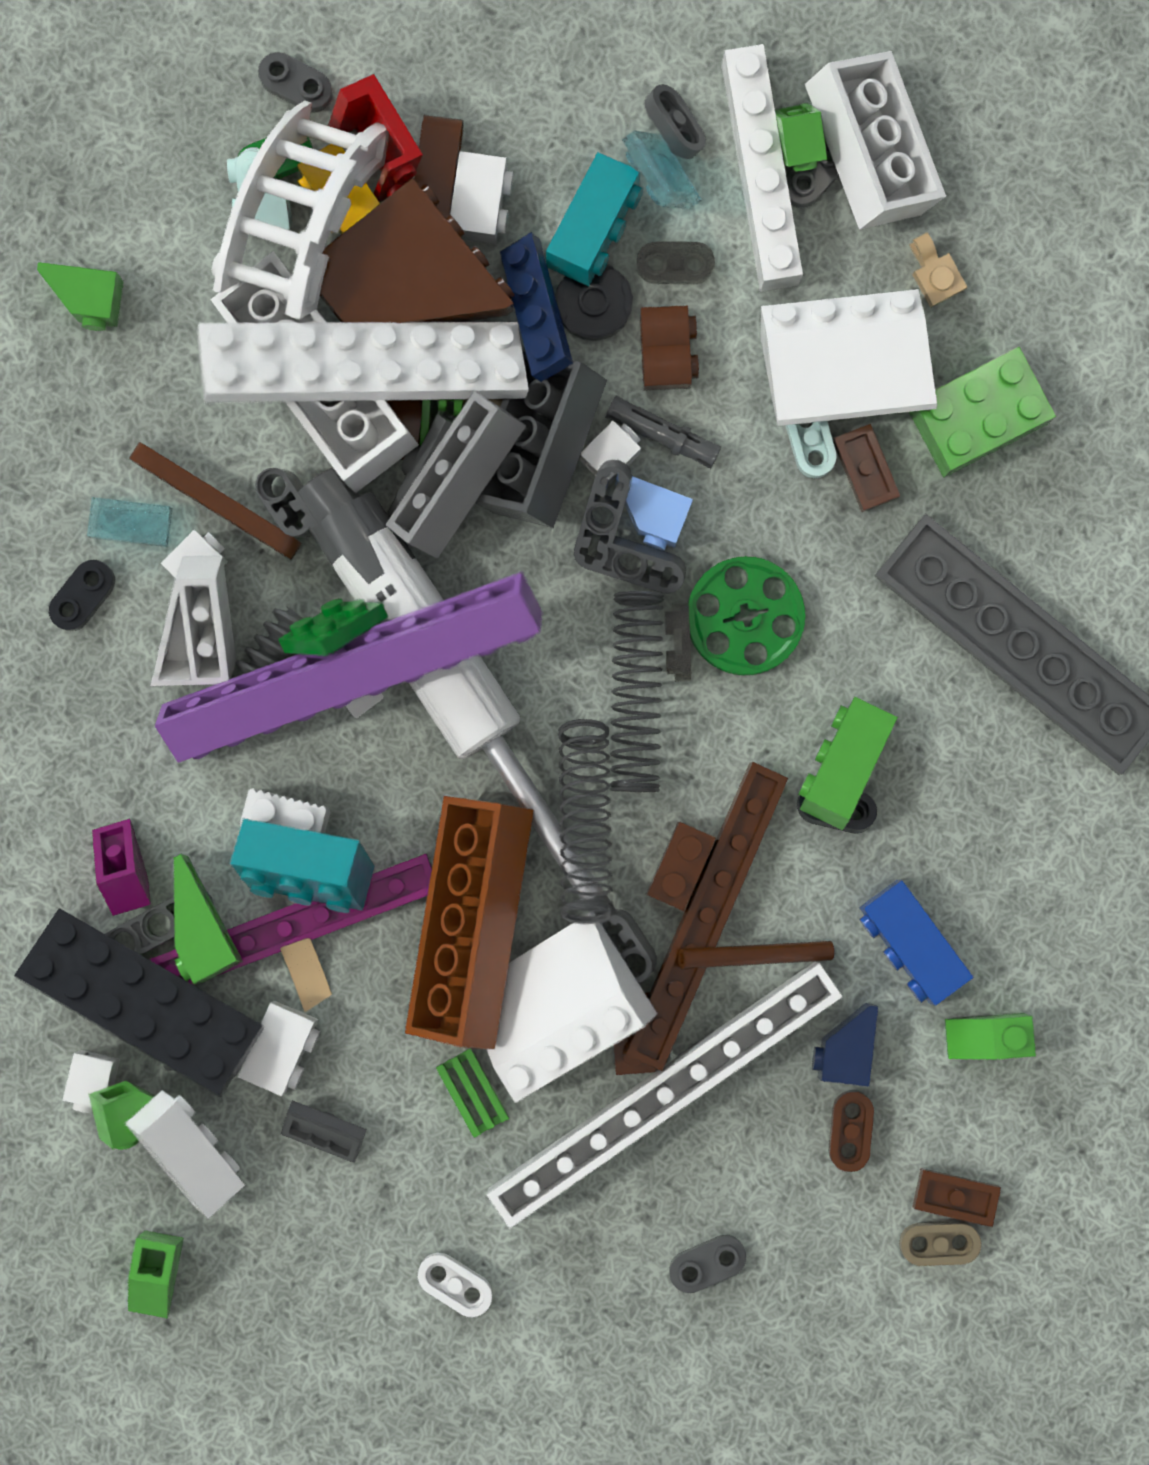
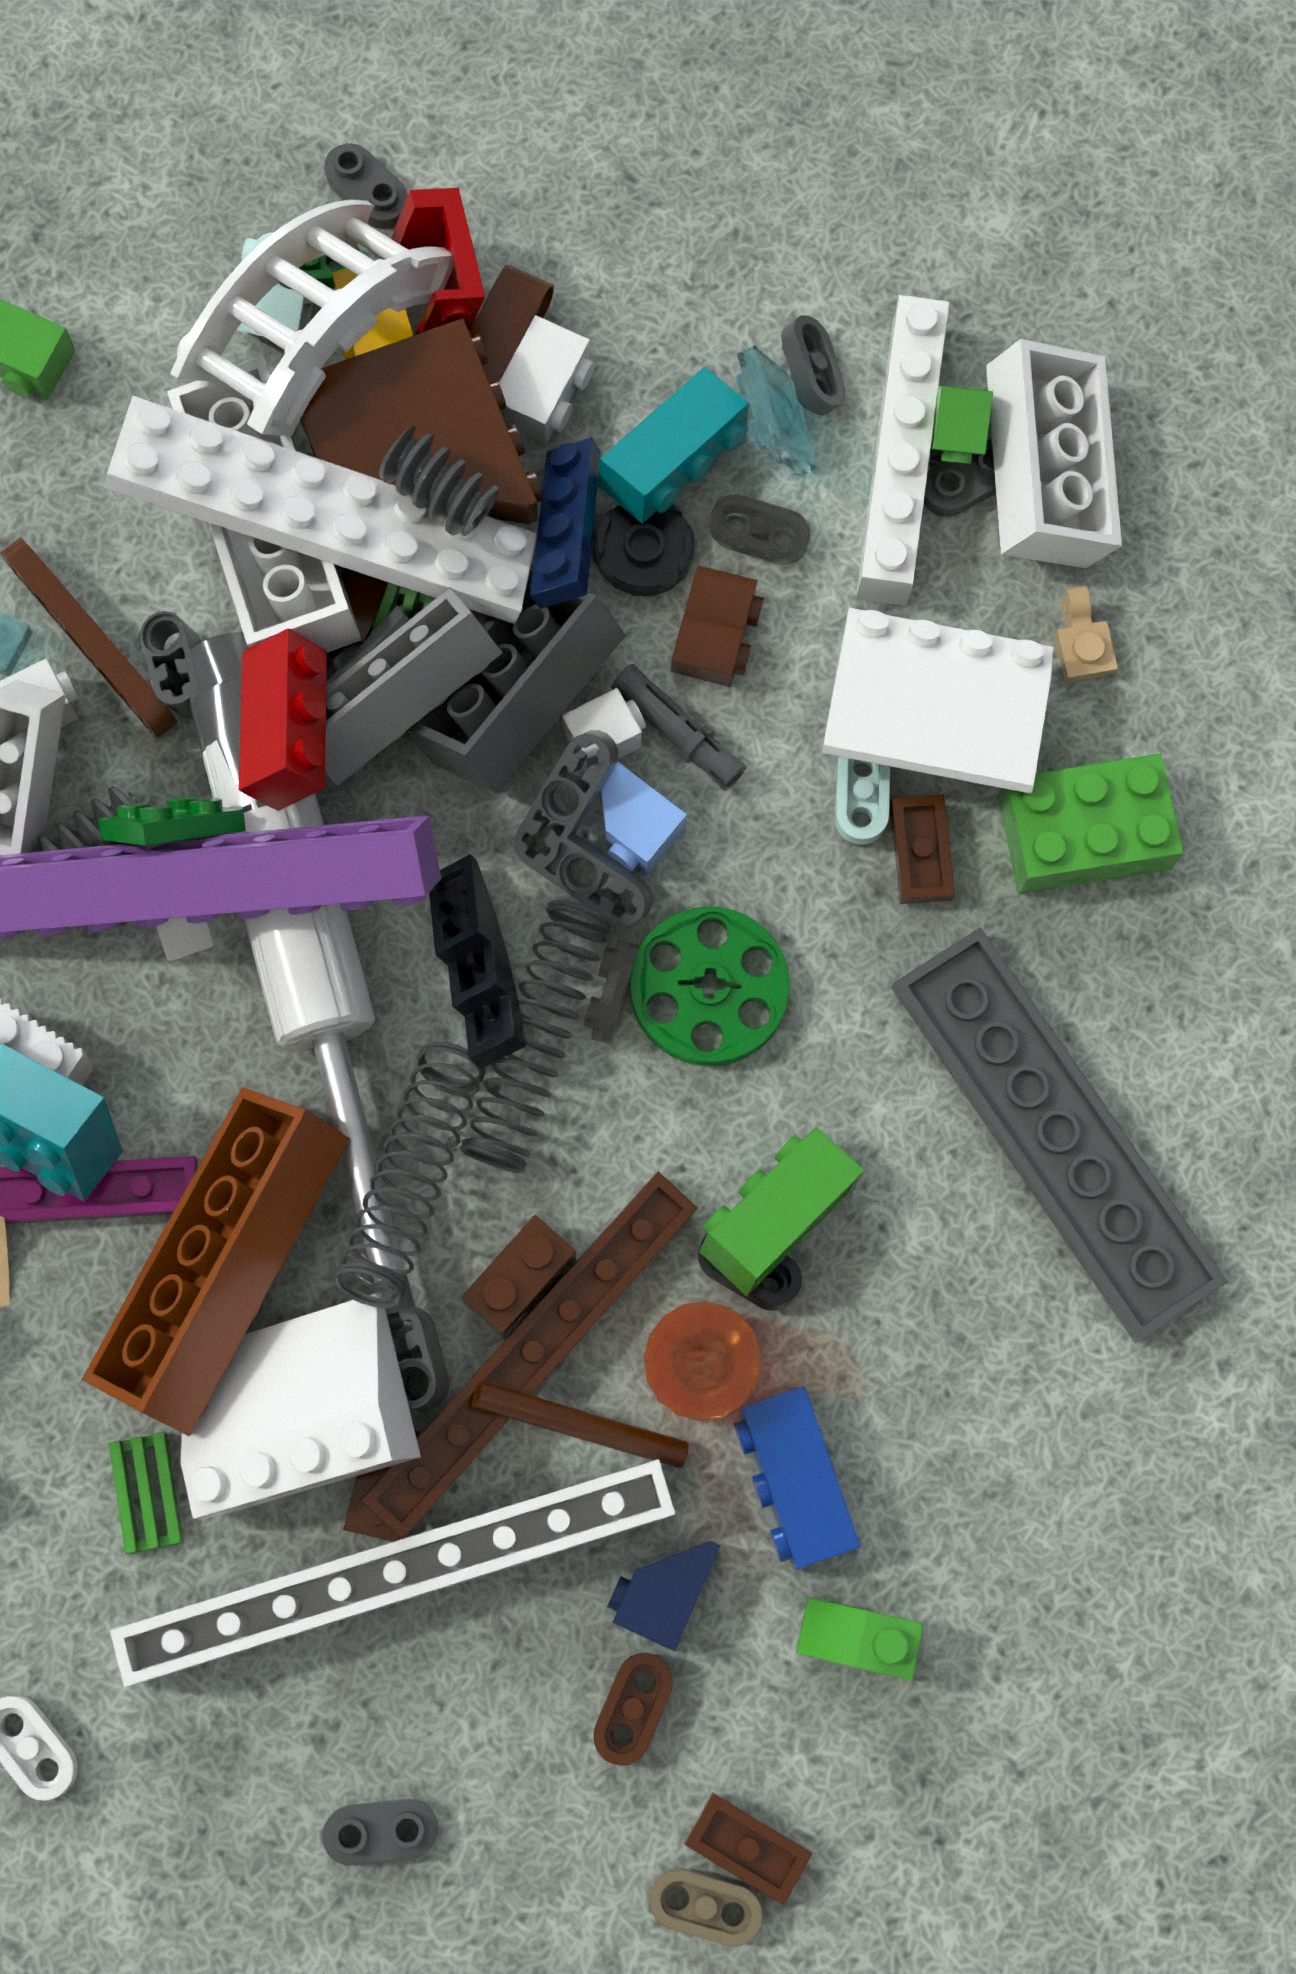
camera: 15 degrees right, 10 degrees down
(389, 529) = (283, 720): none -> red brick
(440, 315) = (436, 483): none -> dark grey piece
(580, 656) = (477, 962): none -> black slope
(849, 891) = (731, 1377): none -> clear orange wheel

